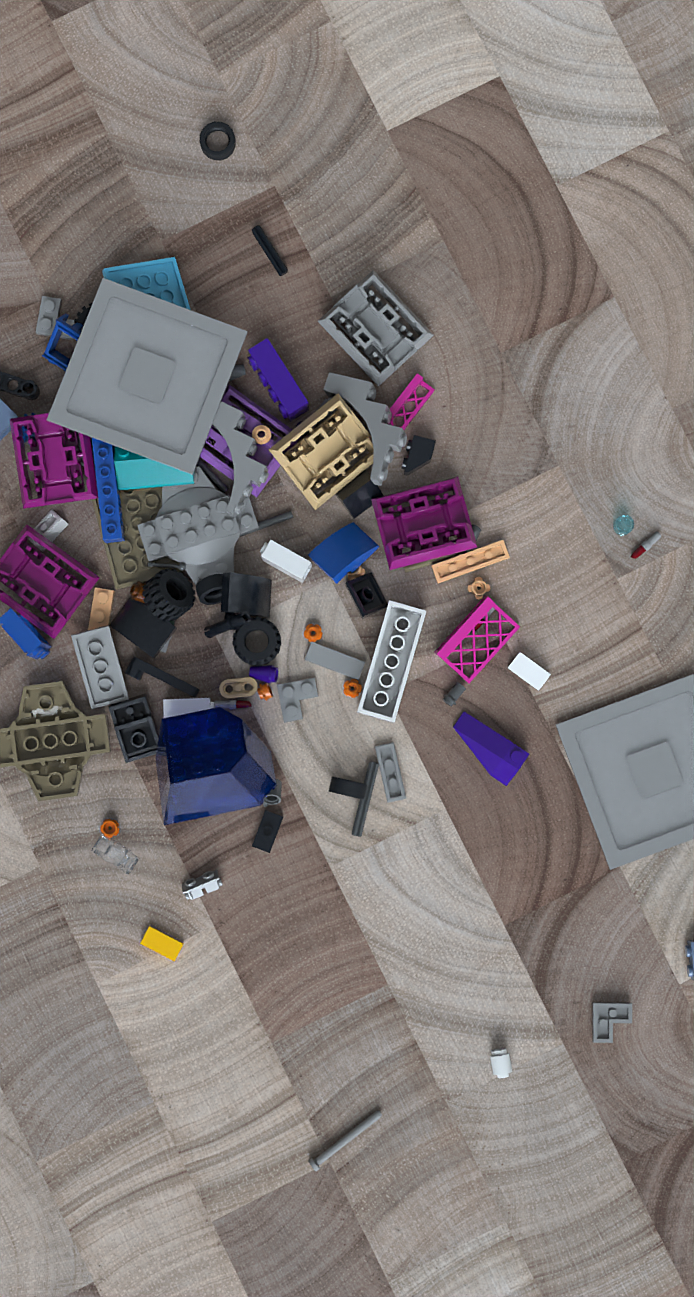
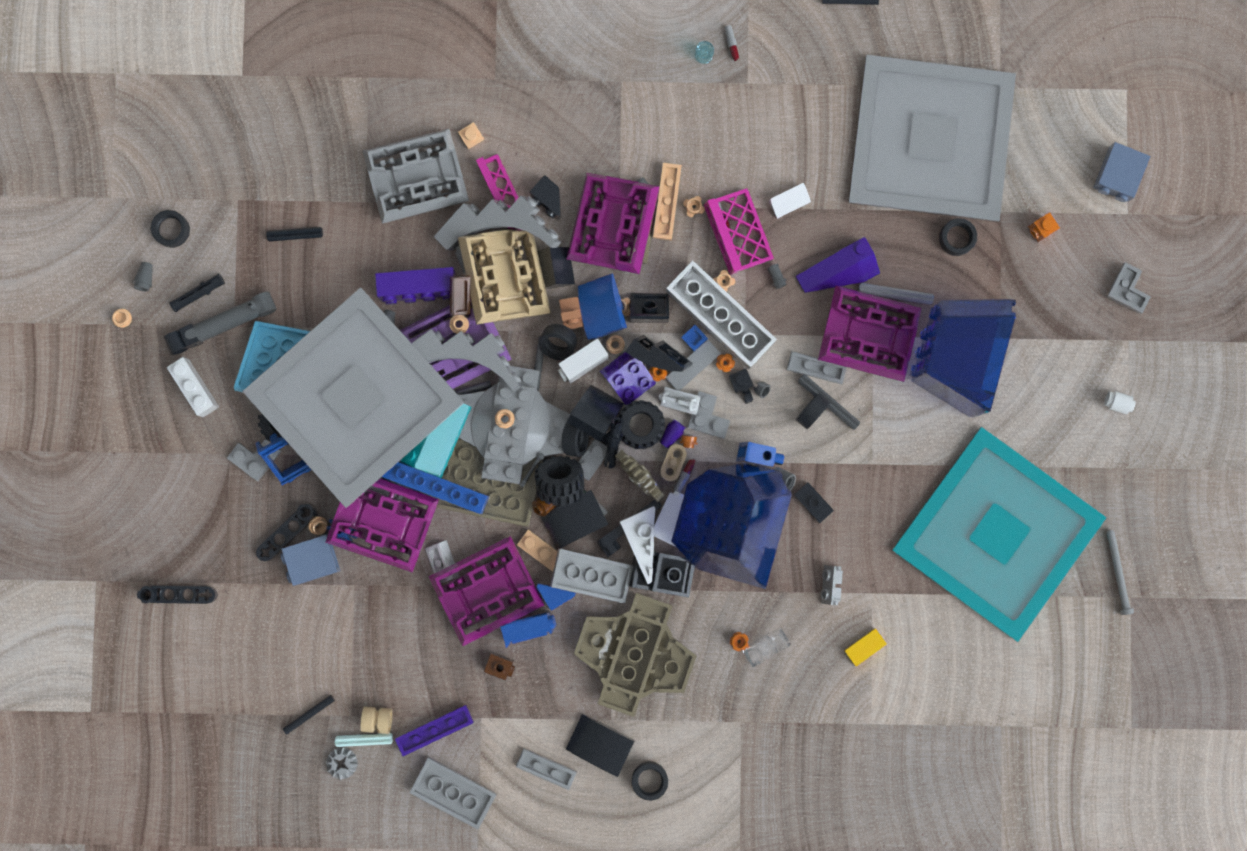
camera: 65 degrees left, 0 degrees up
(20, 408) = (321, 528): none -> light nougat plate
(64, 642) = (553, 596): none -> blue slope
(88, 234) = (193, 387): none -> white brick
(118, 141) = (122, 318): none -> light nougat plate
(136, 212) = (194, 335): none -> dark grey piece
(157, 690) = (640, 535): none -> white wing
(162, 141) = (143, 278): none -> dark grey cone
(179, 197) = (203, 289): none -> black pin
(197, 511) = (504, 412): none -> light nougat plate
(204, 614) = (592, 458): none -> light grey plate
(208, 662) = (639, 475): none -> dark tan gear
(281, 753) = (753, 454): none -> torso
(286, 421) = (459, 295): none -> tile
(294, 608) = (628, 377): none -> dark purple bracket
(296, 665) = (679, 400): none -> white hinge
(301, 529) = (561, 332): none -> black tyre
(313, 577) = (613, 338): none -> light nougat plate
(323, 528) = (571, 312): none -> nougat brick
(325, 625) = (658, 355): none -> black slope
(325, 1013) = (999, 534): none -> baseplate
(342, 712) = (741, 383): none -> black plate
(345, 733) = (762, 389): none -> dark grey hinge
(359, 649) = (694, 338): none -> blue plate
(426, 654) = (724, 276): none -> light nougat plate
(438, 358) = (471, 135): none -> light nougat plate
(444, 803) = (869, 334): none -> magenta piece
(470, 895) = (964, 352): none -> clear blue windscreen
(494, 809) = (895, 293): none -> light grey axle
(589, 834) = (969, 227): none -> black tyre
(624, 912) = (1043, 227): none -> orange brick

